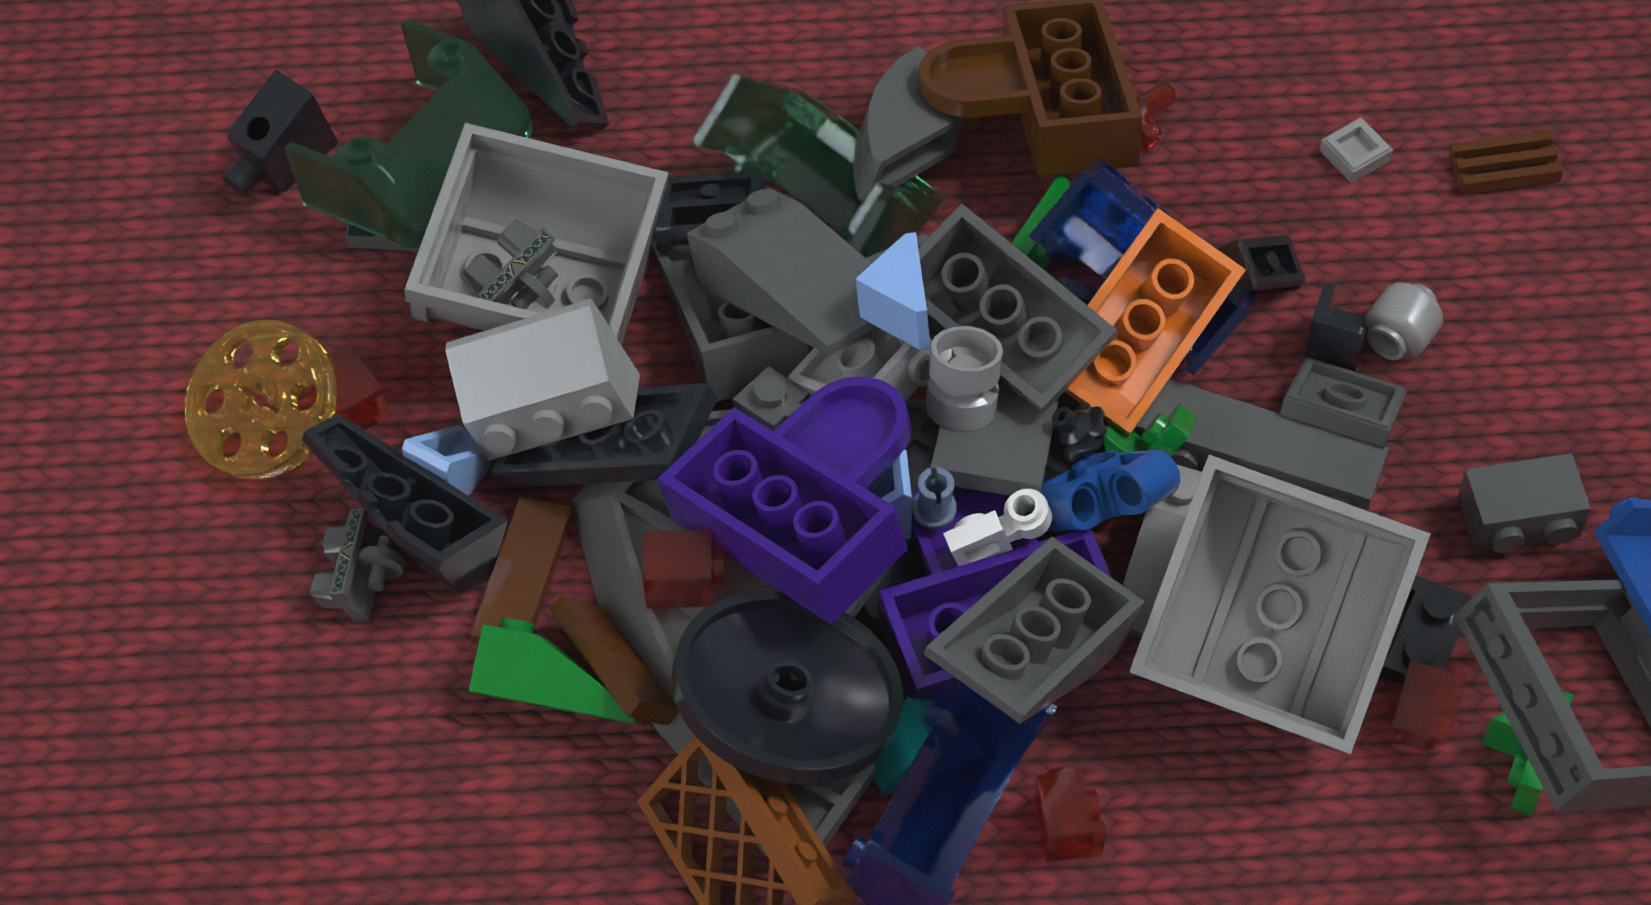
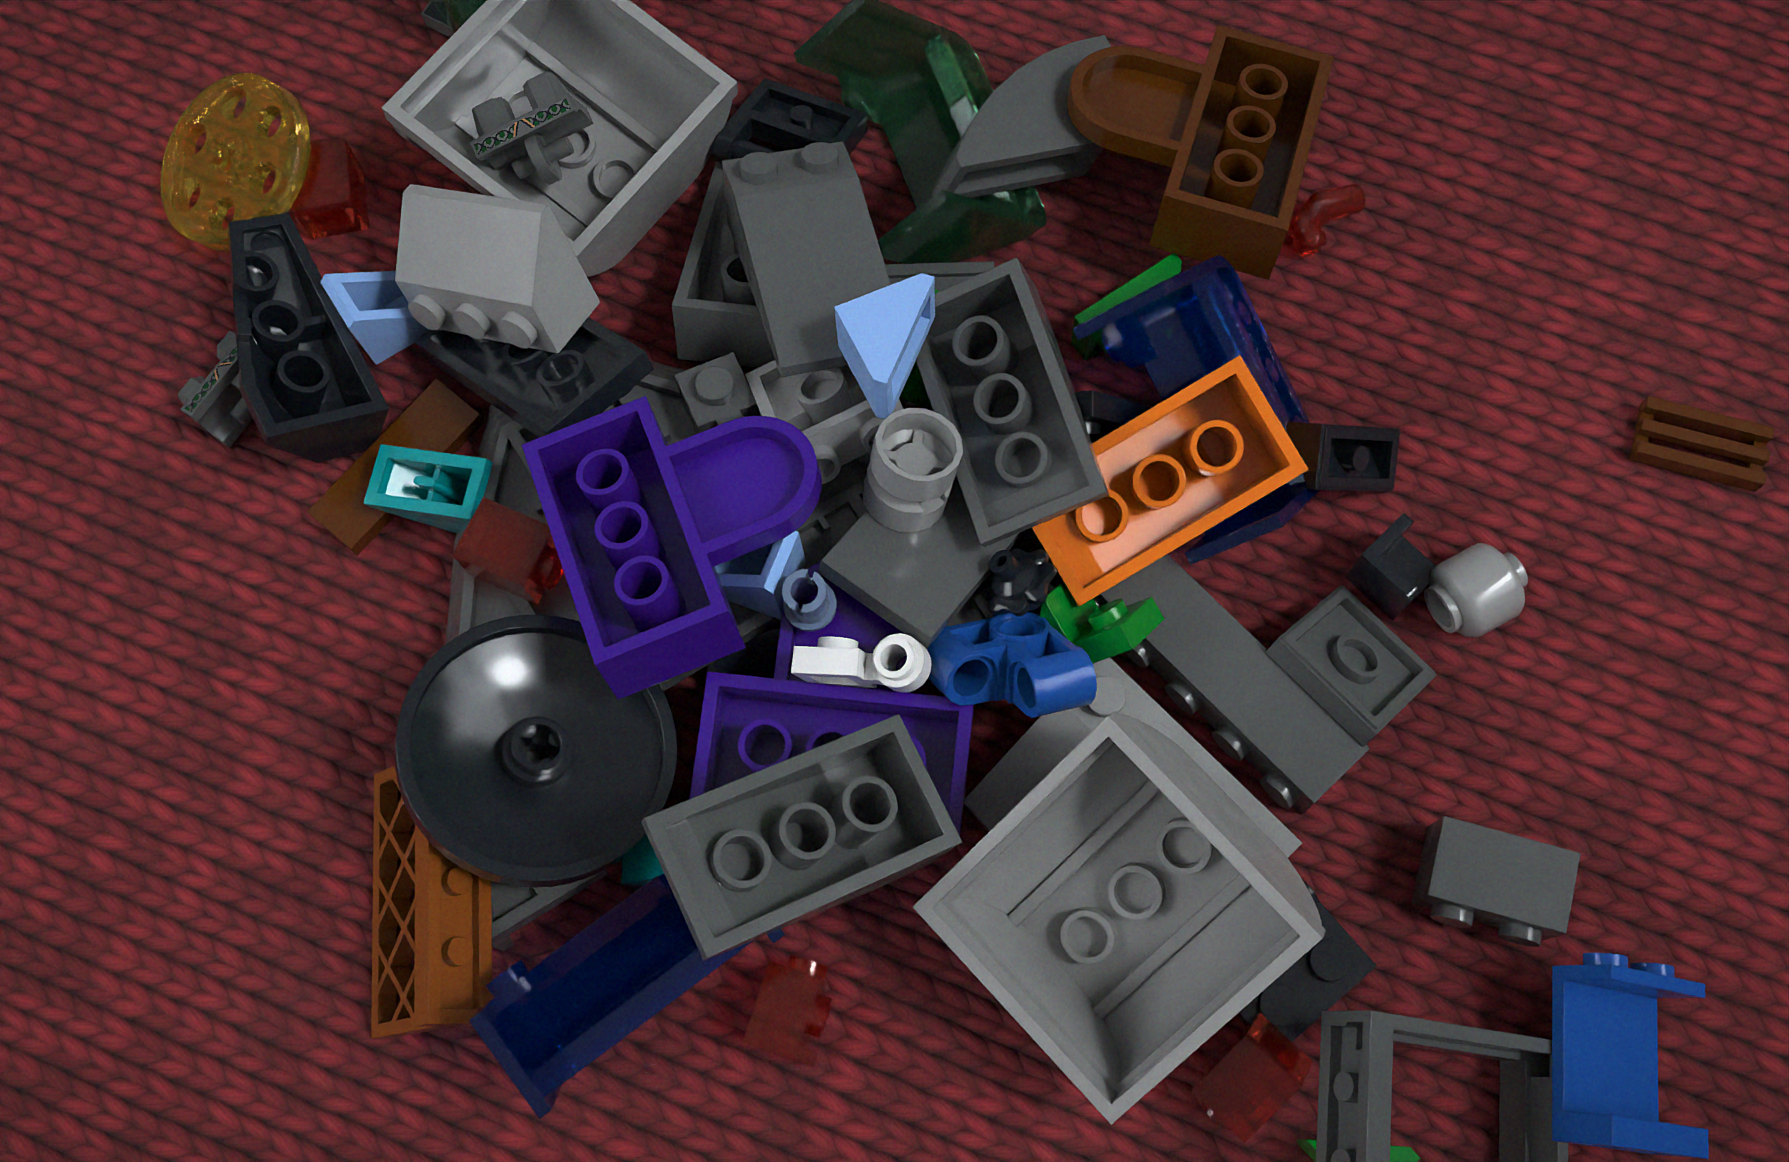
camera: 30 degrees right, 15 degrees up
(536, 672) = (345, 597): green slope -> none
(574, 565) = (428, 486): none -> teal slope
(614, 661) = (415, 602): reddish brown tile -> none
(1356, 150) = (1535, 355): light grey tile -> none

